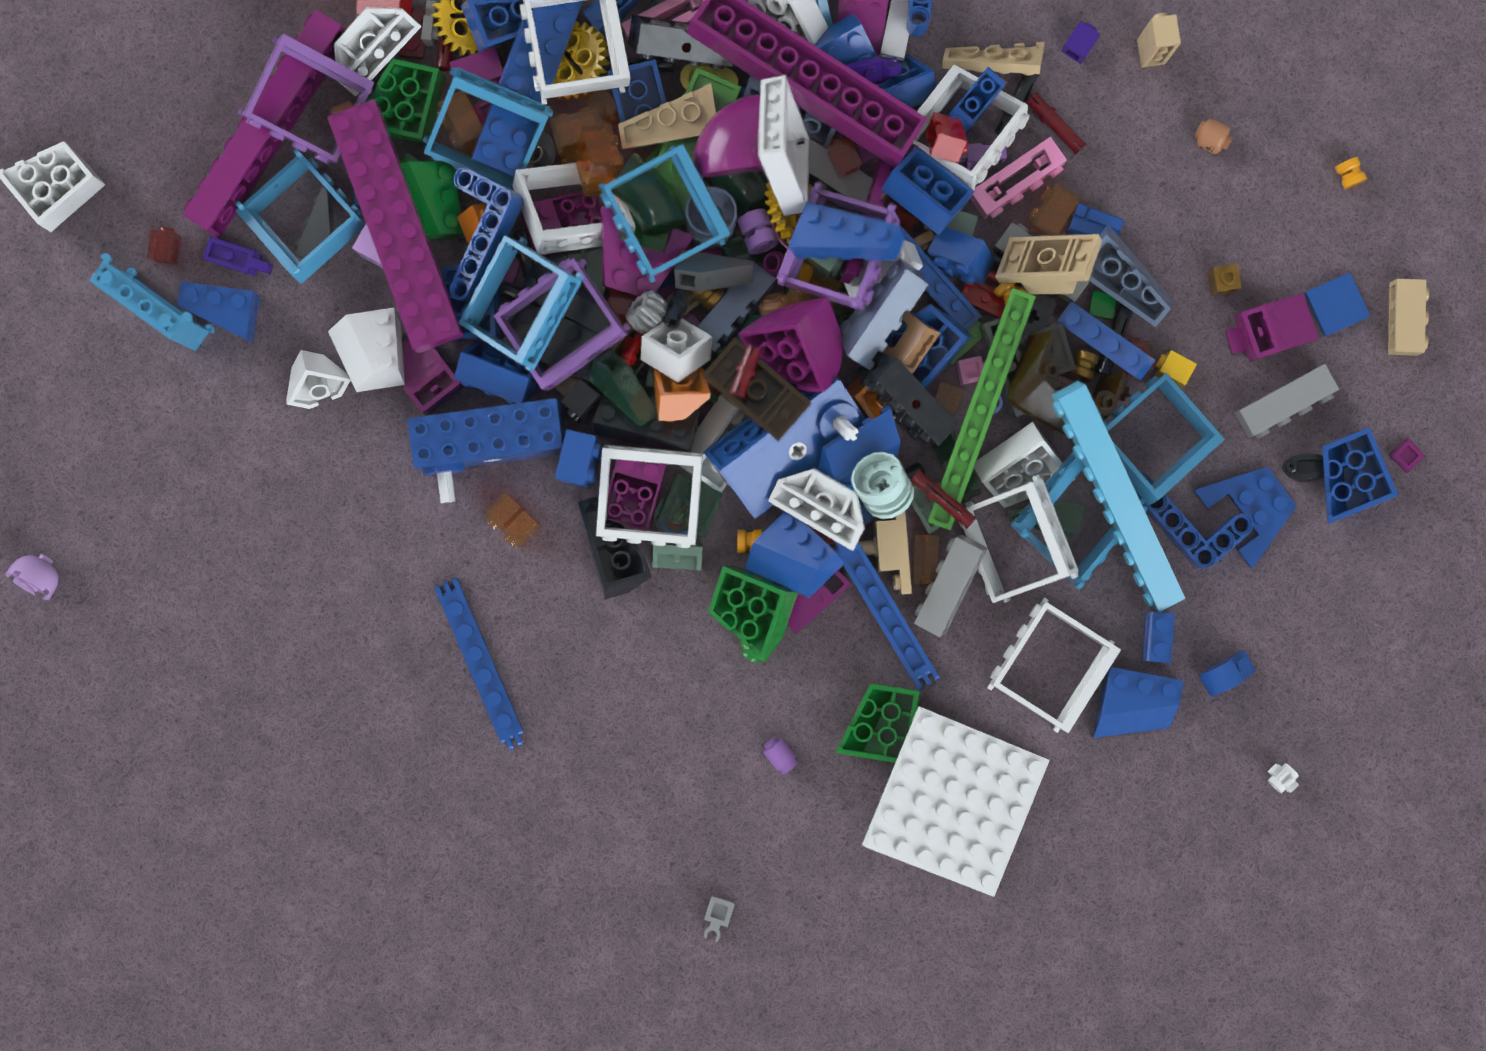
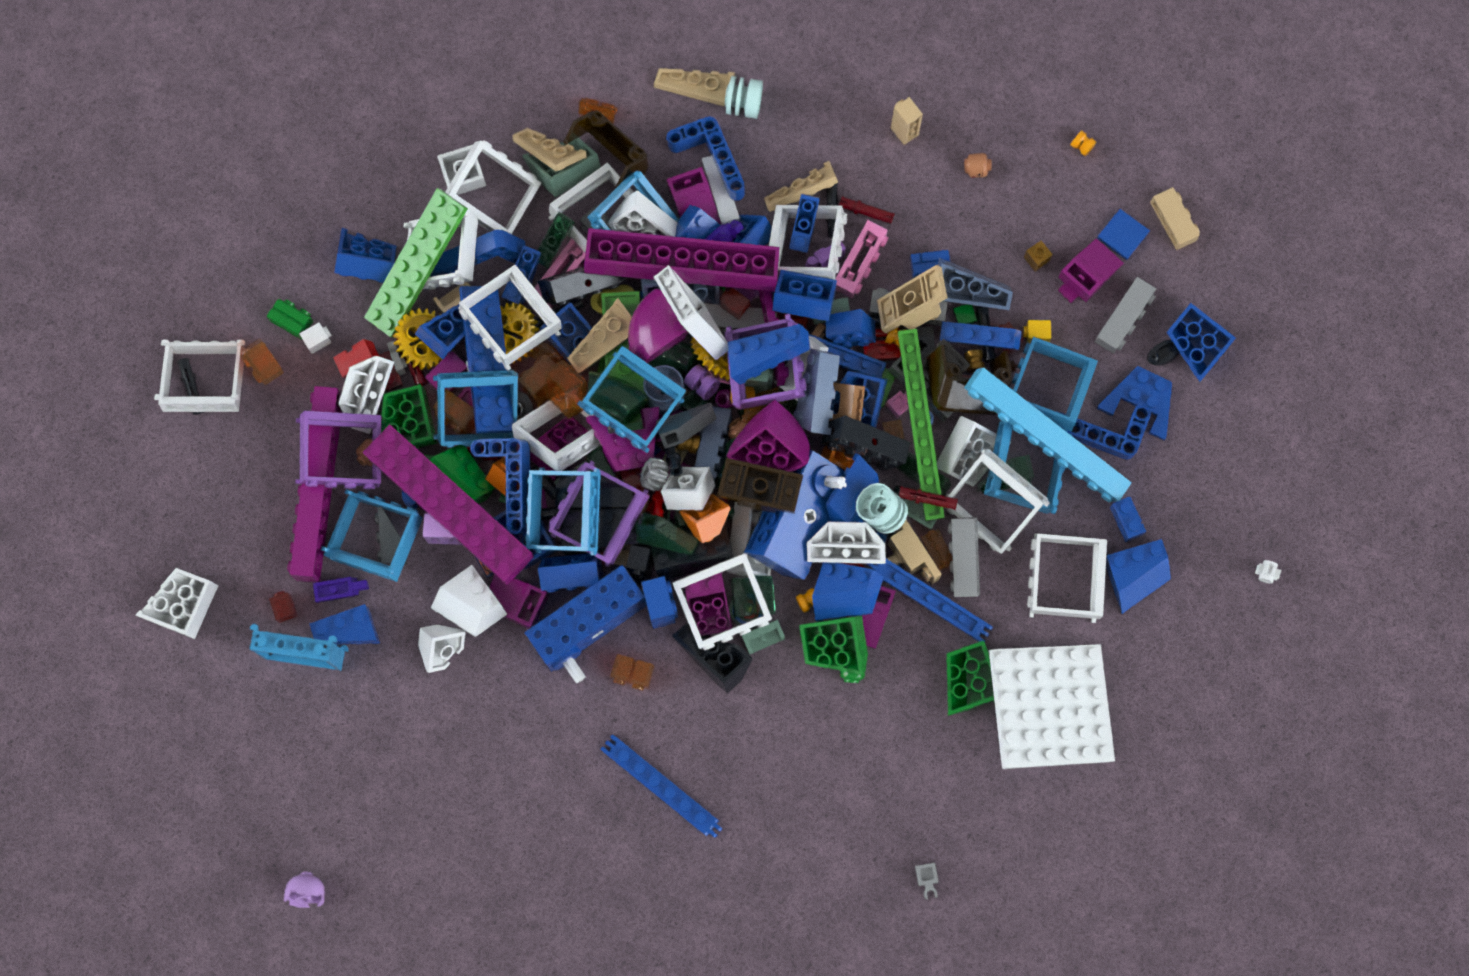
camera: 30 degrees left, 10 degrees down
(745, 371) = (746, 476): dark red pin -> none
(780, 755) = (910, 739): medium lavender brick -> none
(946, 137) = (798, 254): red brick -> none
(1054, 212) = (897, 268): clear orange piece -> none
(1081, 42) = (854, 148): dark purple brick -> none
(1227, 673) = (1189, 520): blue brick -> none
(1406, 455) = (1227, 310): magenta tile -> none

